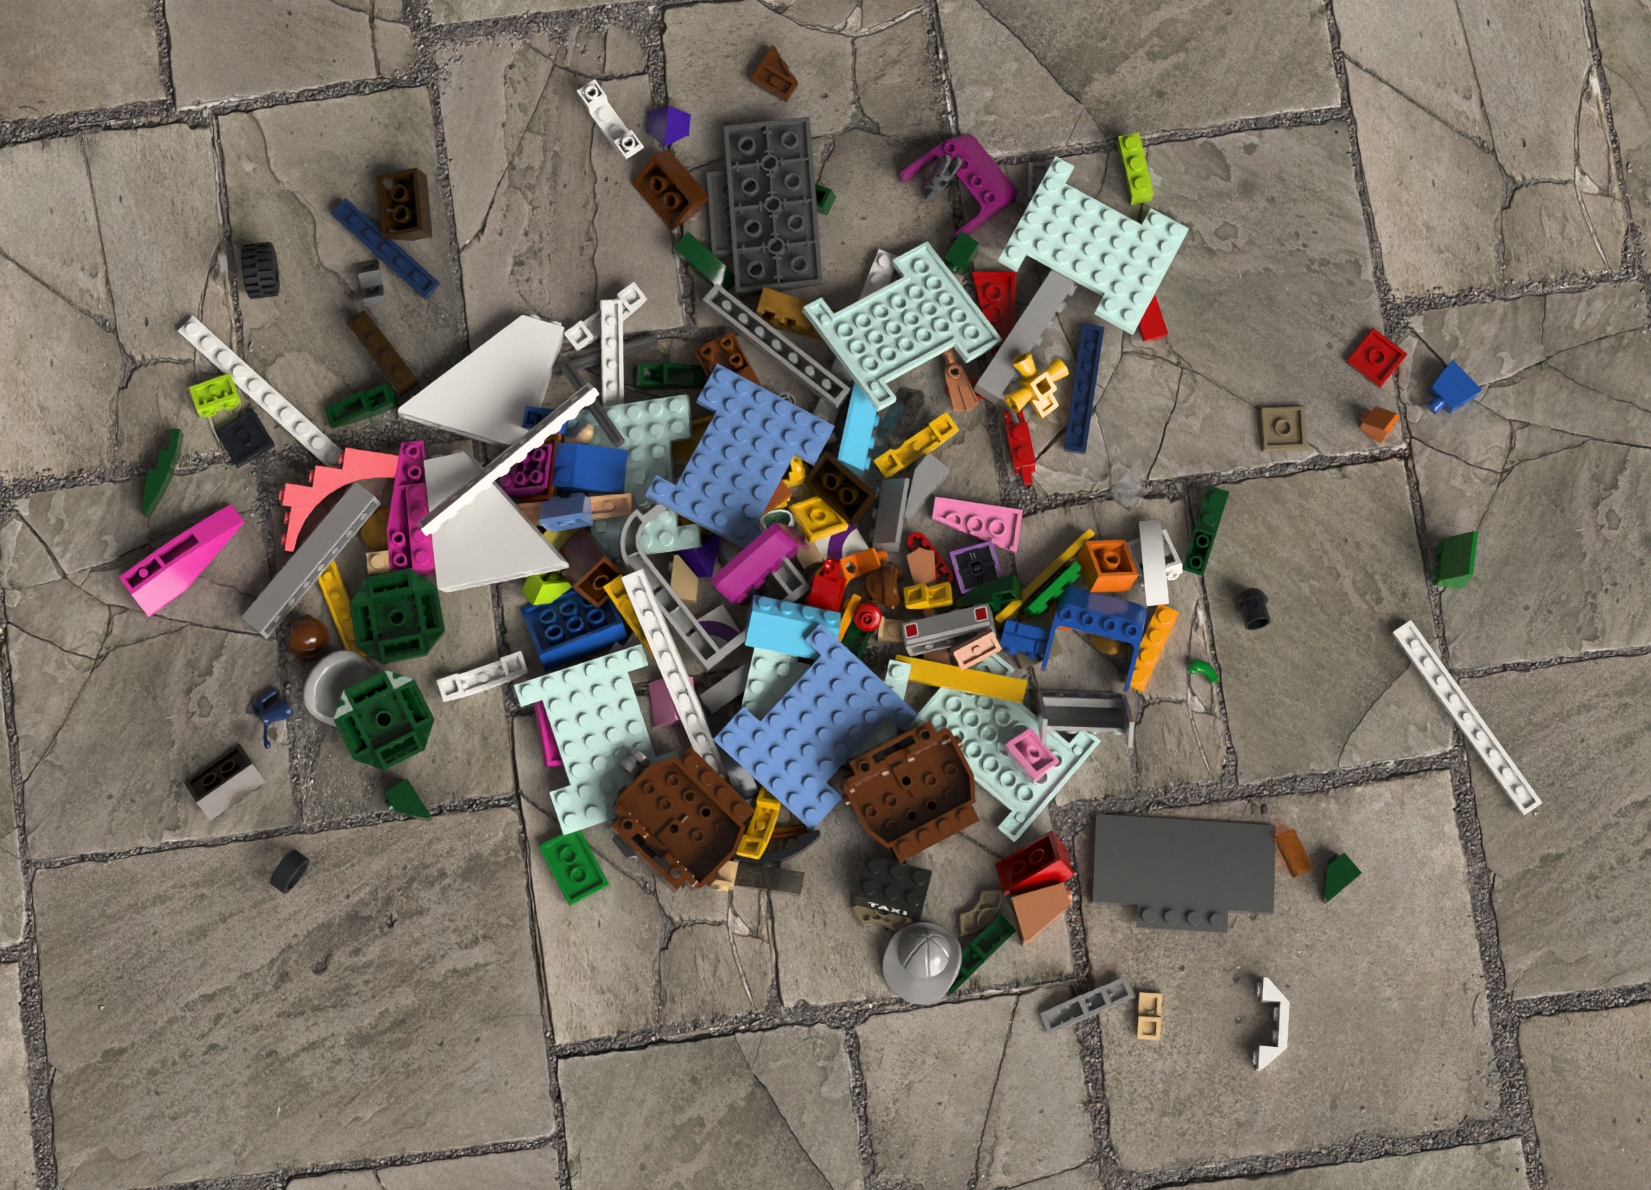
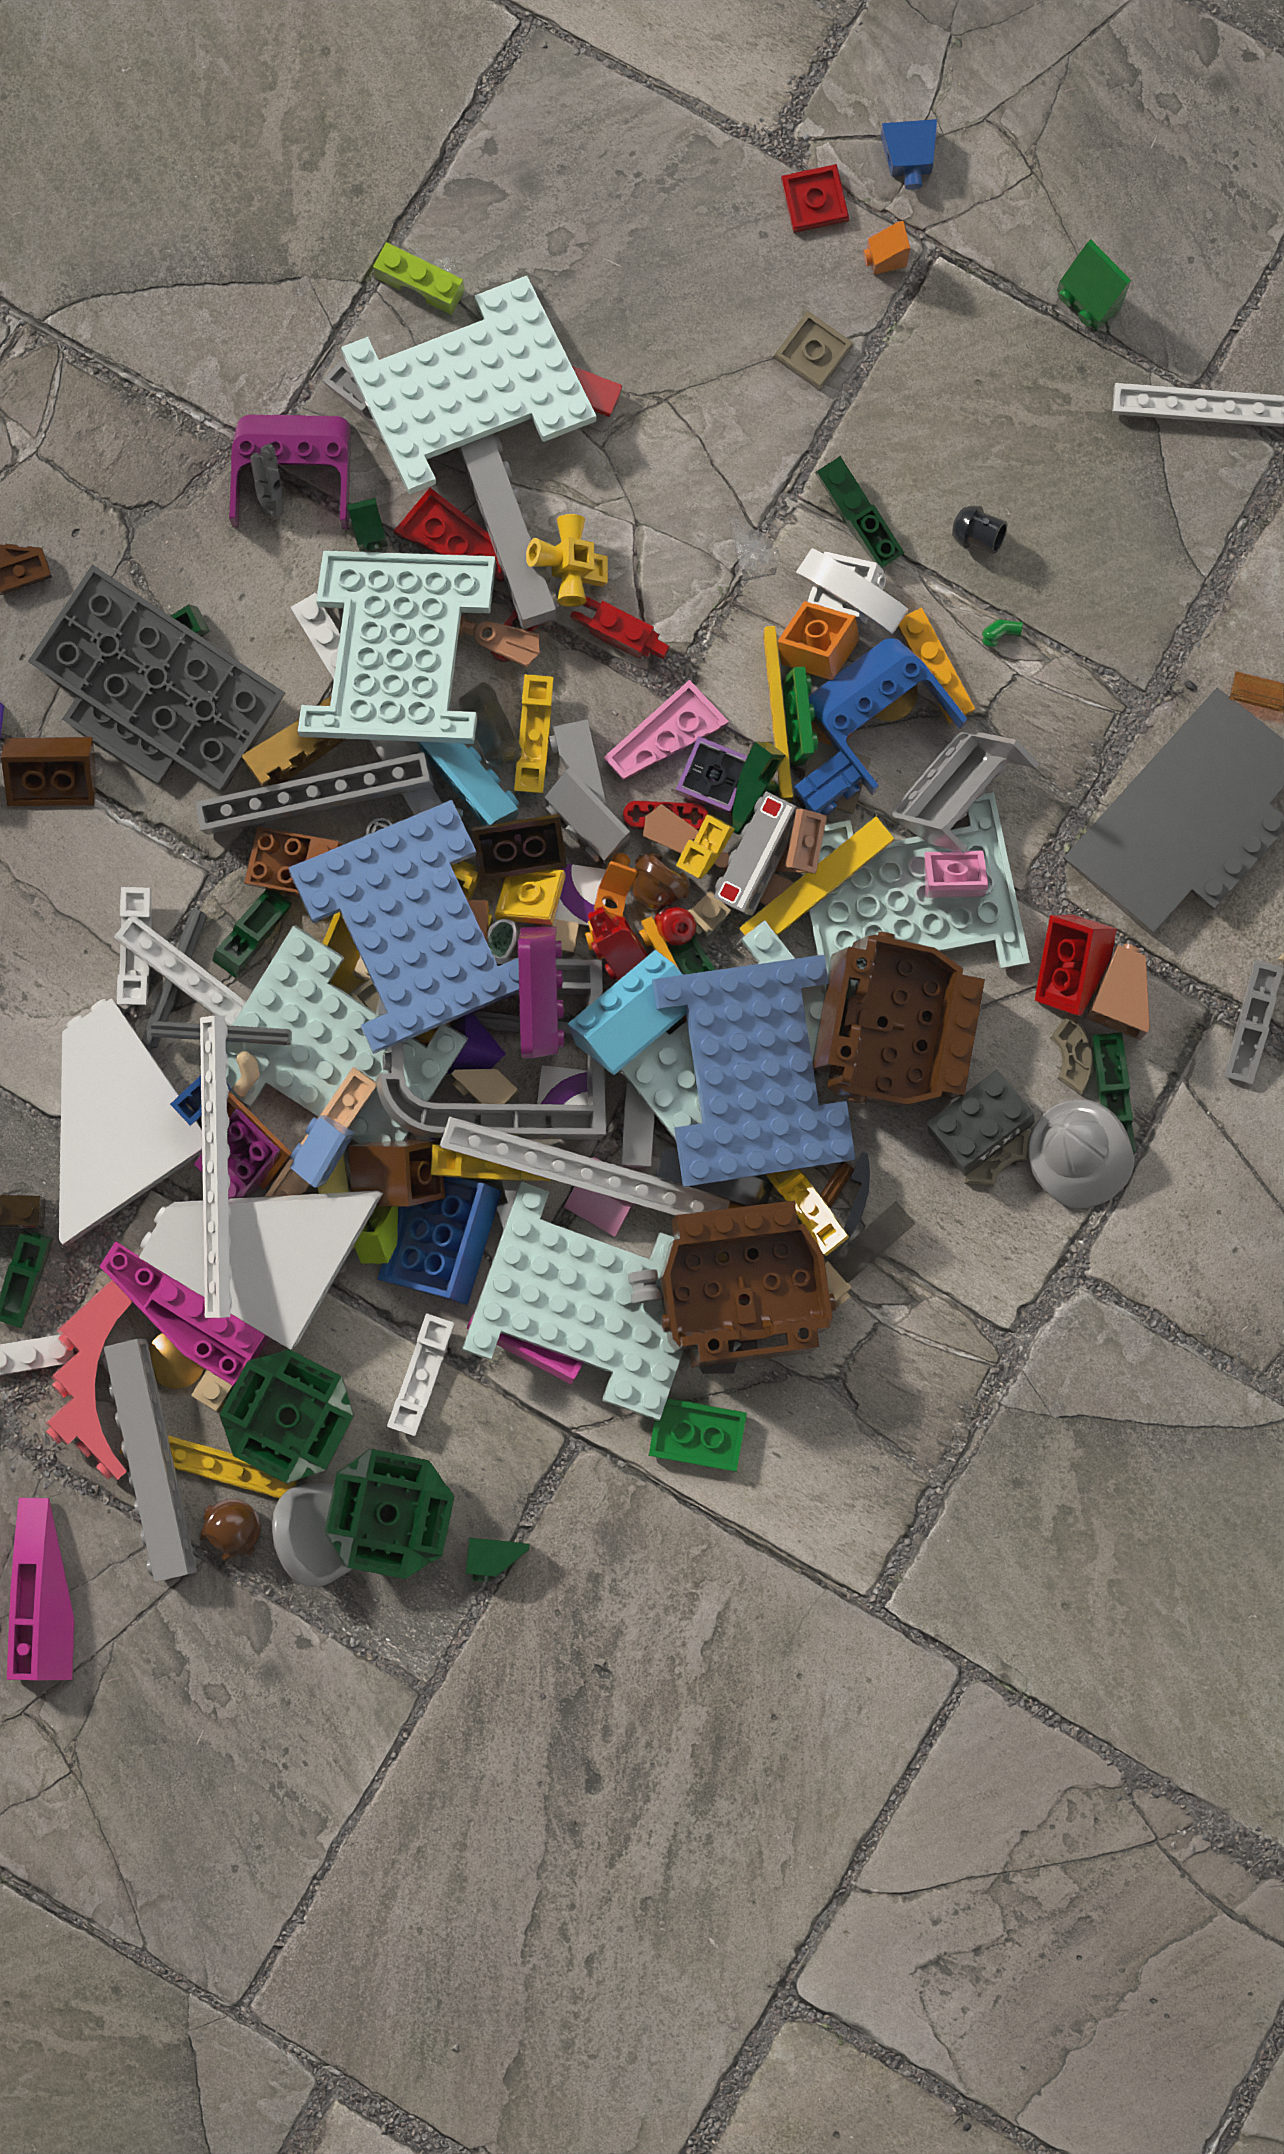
camera: 50 degrees left, 5 degrees up
(224, 782) = (317, 1734): dark brown slope -> none
(276, 712) = (286, 1619): dark blue piece -> none
(289, 871) = (471, 1737): black tyre -> none
(589, 469) = (290, 1089): blue slope -> none
(704, 262) = (159, 797): dark green slope -> none
(1083, 389) = (610, 516): dark blue plate -> none

